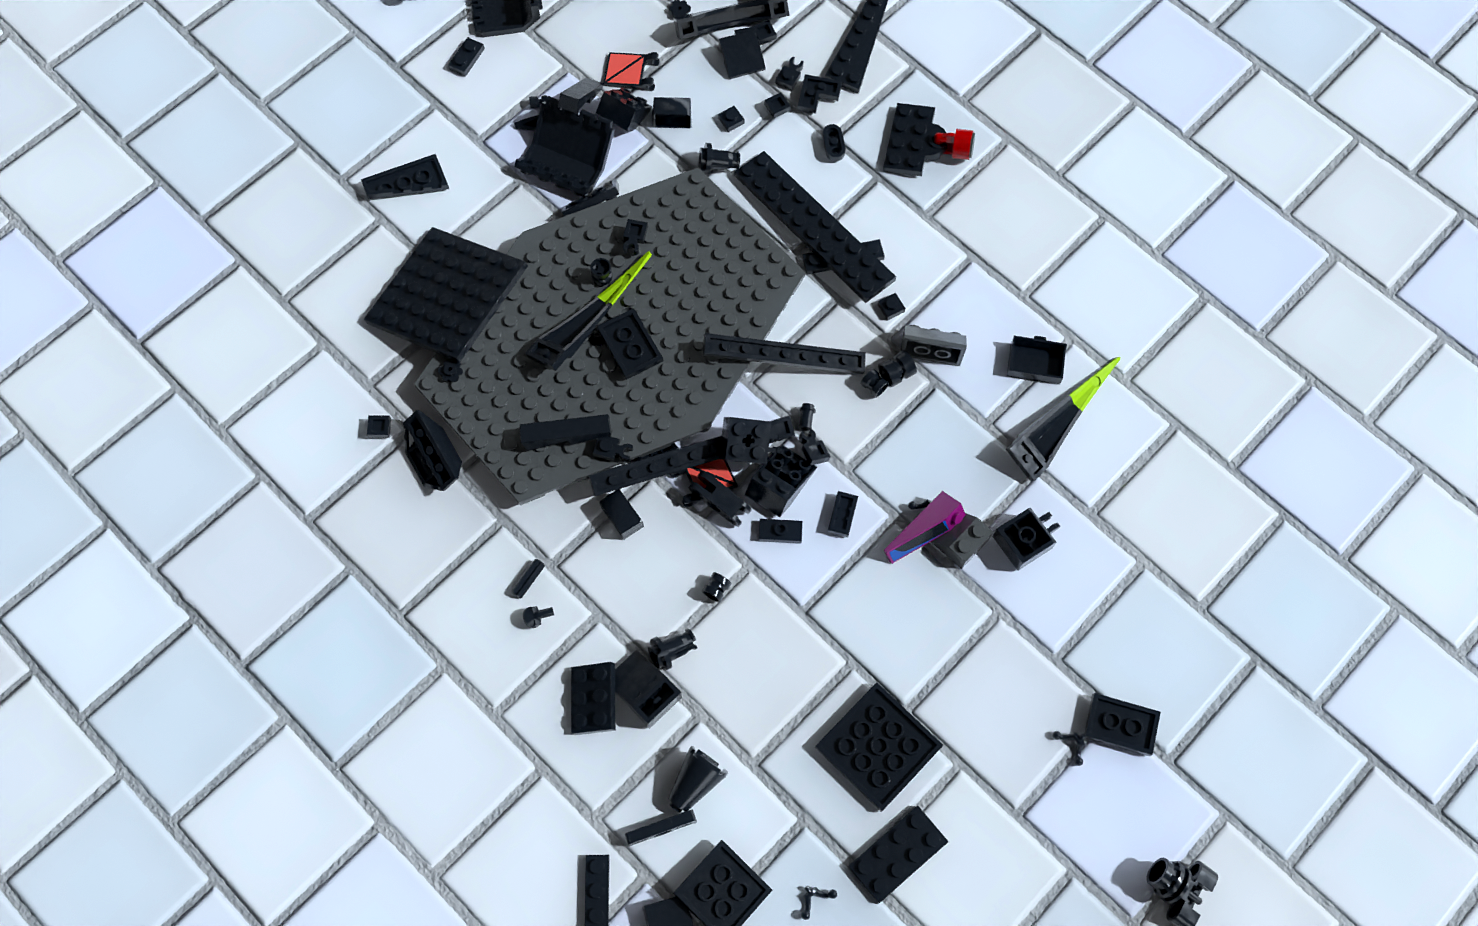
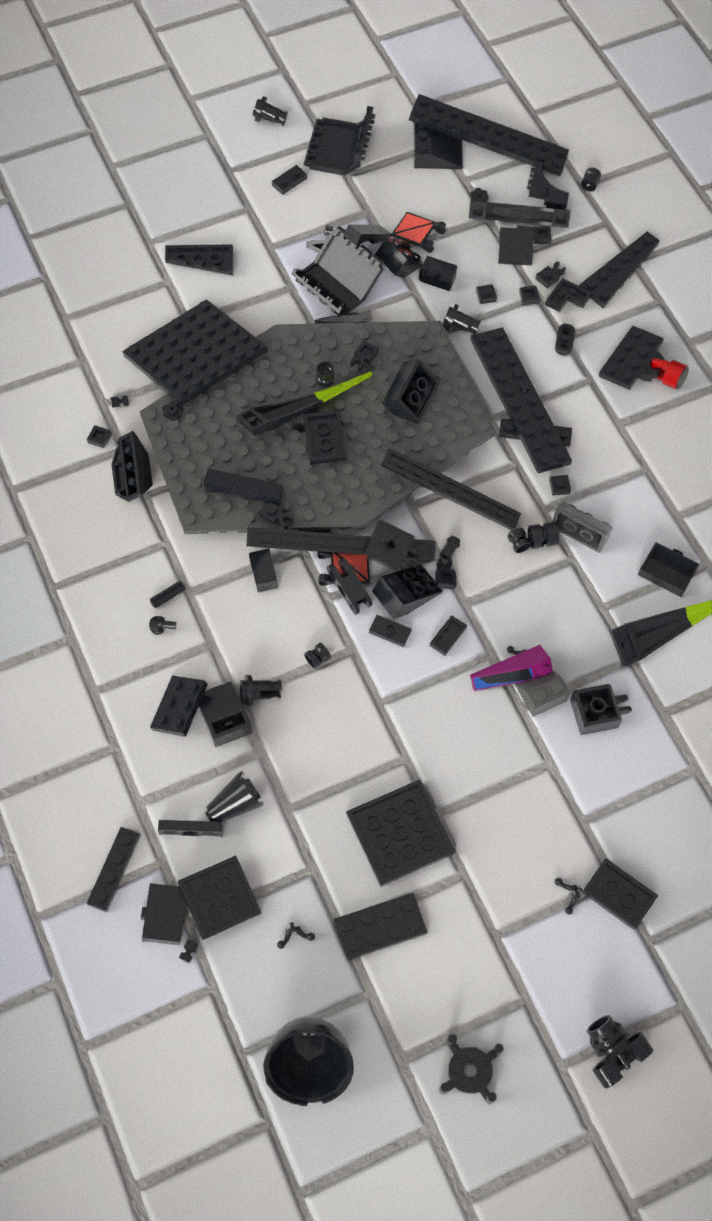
camera: 20 degrees right, 5 degrees down
(380, 379) = (115, 401): none -> black piece
(701, 259) = (411, 391): none -> black slope

